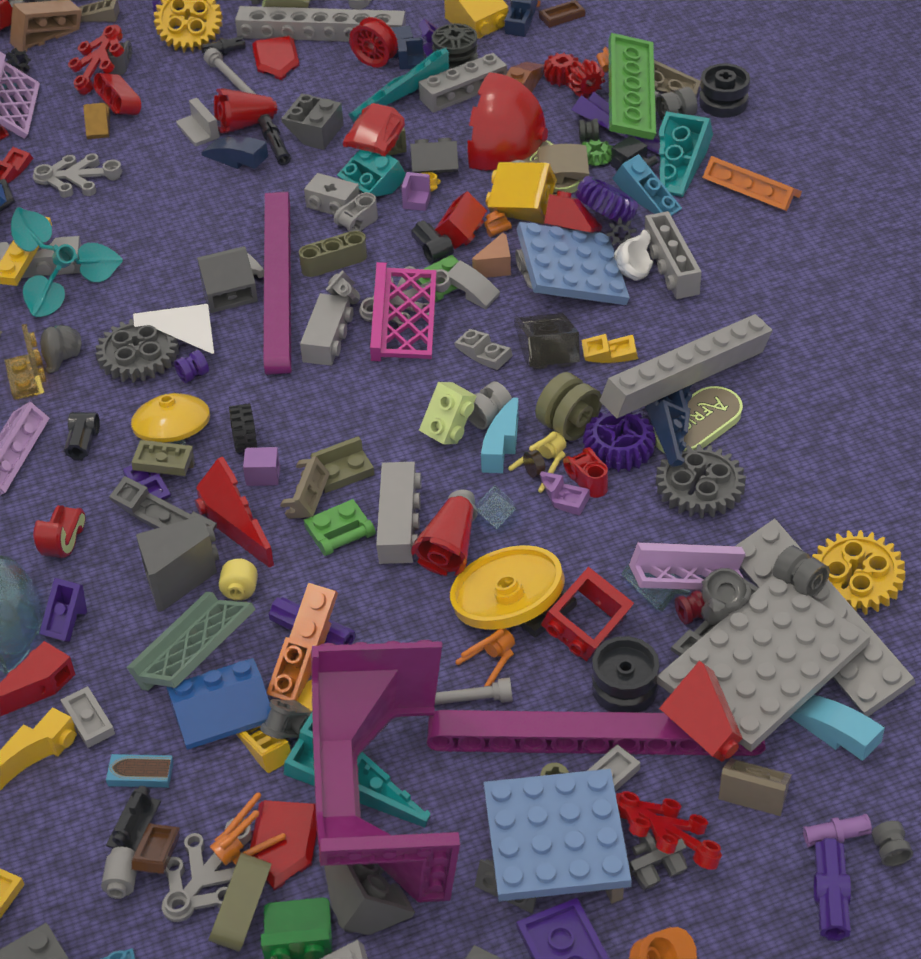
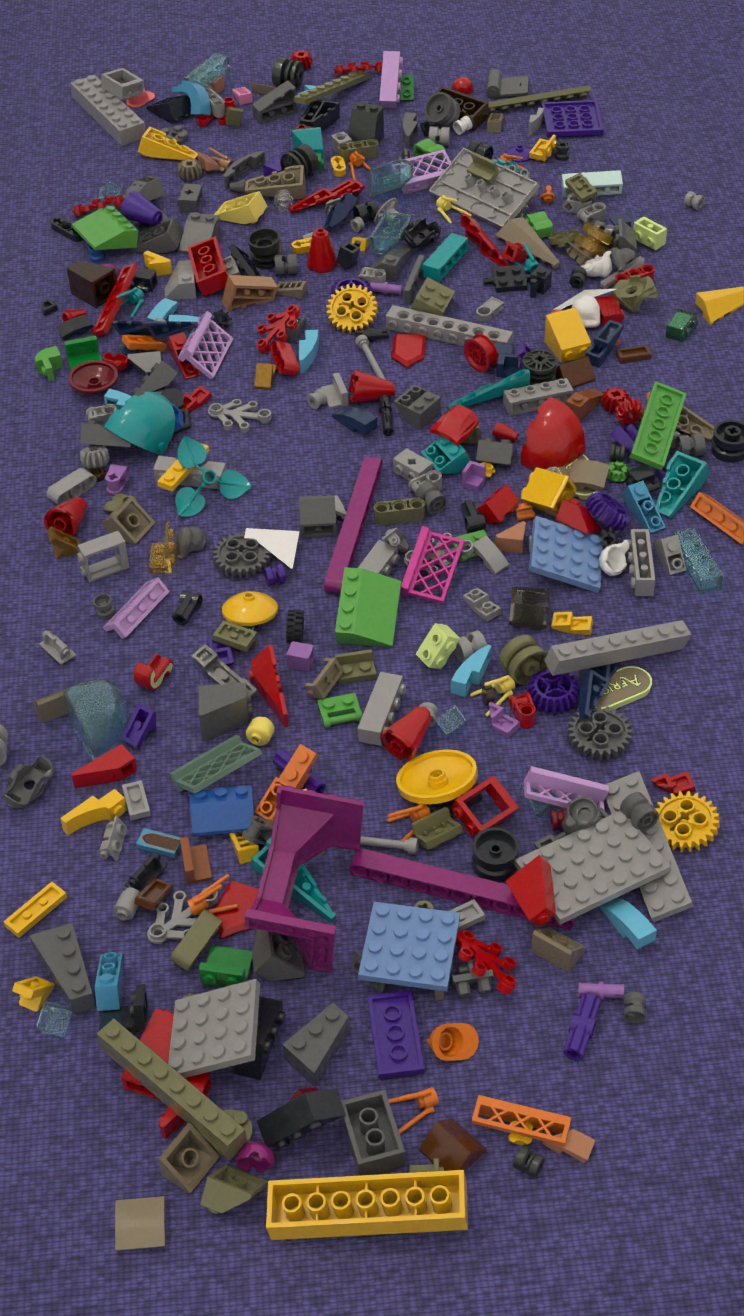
camera: 15 degrees right, 0 degrees up
(71, 771) = (114, 838): none -> light grey hinge
(145, 78) = (308, 349): none -> medium azure slope
(176, 135) = (317, 398): none -> light grey wheel
(201, 786) = (195, 862): none -> dark orange panel
(335, 384) = (367, 608): none -> bright green slope
(375, 228) = (433, 498): none -> dark grey wheel
(434, 131) = (504, 432): none -> red cone
(503, 43) = (577, 372): none -> reddish brown slope
(529, 659) = (436, 828): none -> olive bracket
(703, 238) = (670, 554): none -> light grey slope
(739, 239) = (699, 562): none -> clear light blue brick
(823, 525) = (674, 784): none -> red slope

